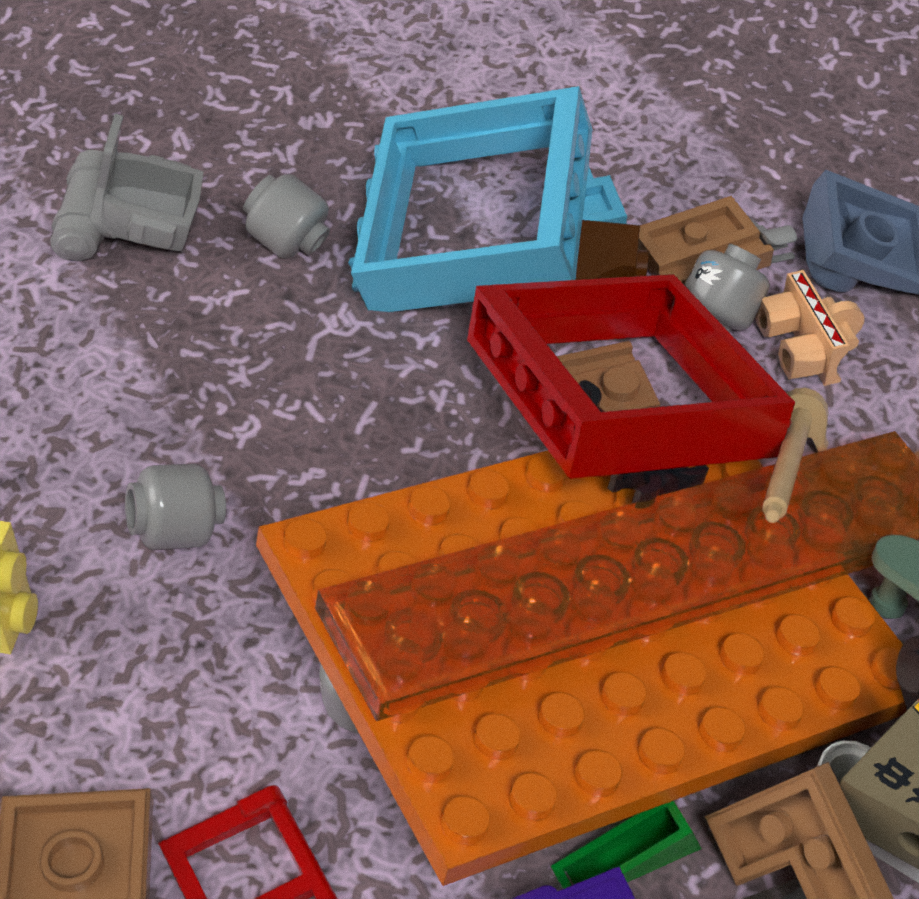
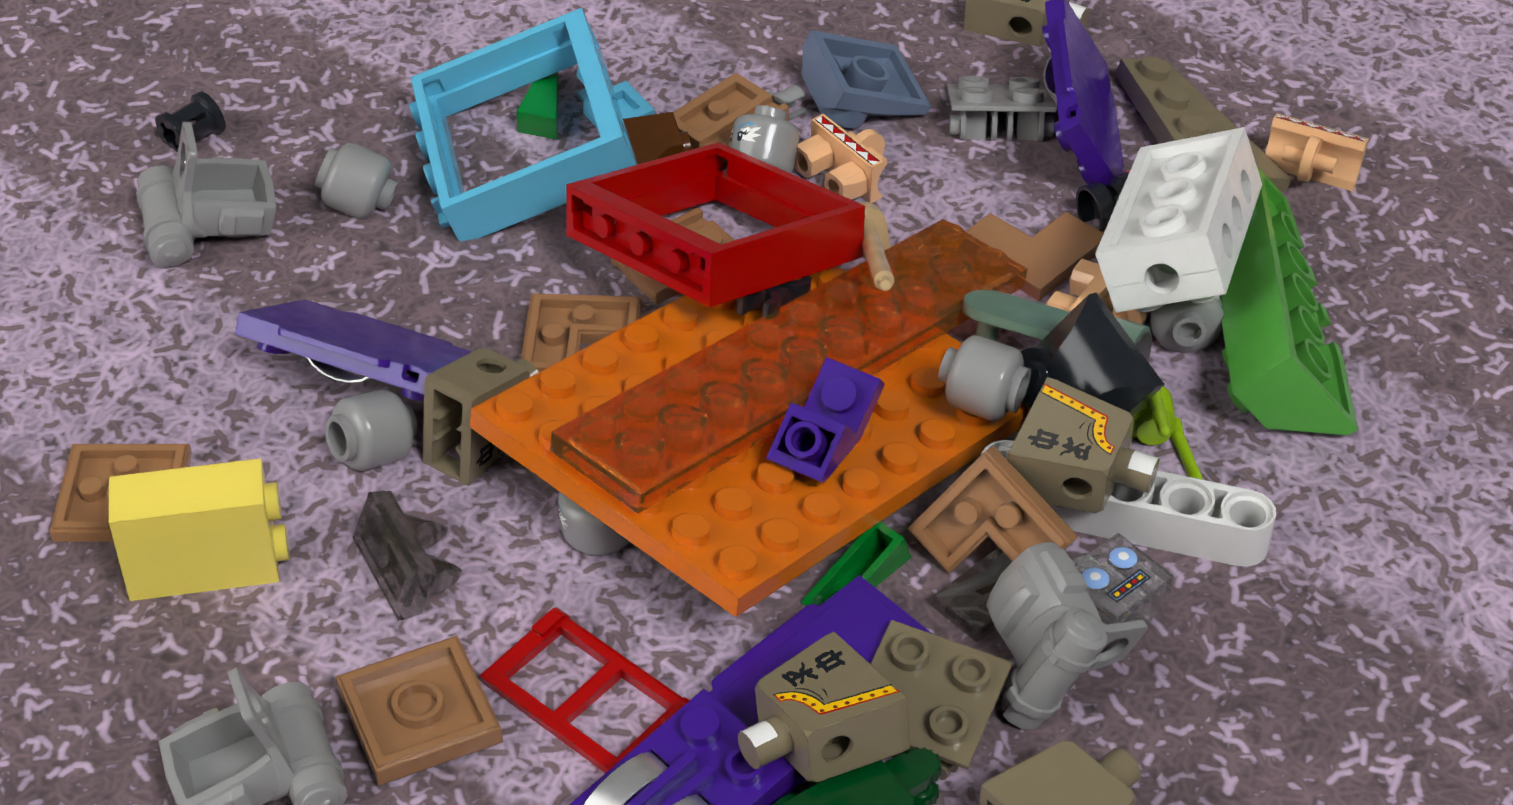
camera: 20 degrees left, 5 degrees down
(134, 646) = (396, 554): none -> clear smoke tile
(170, 98) = (202, 110): none -> black bush
(206, 413) = (348, 342): none -> dark purple piece
(274, 494) = (448, 405): none -> dark tan torso
(433, 436) = (564, 321): none -> medium nougat tile
(512, 181) = (539, 108): none -> green piece
(637, 676) = (829, 425): none -> dark purple slope
(858, 659) = (984, 377): none -> light grey head

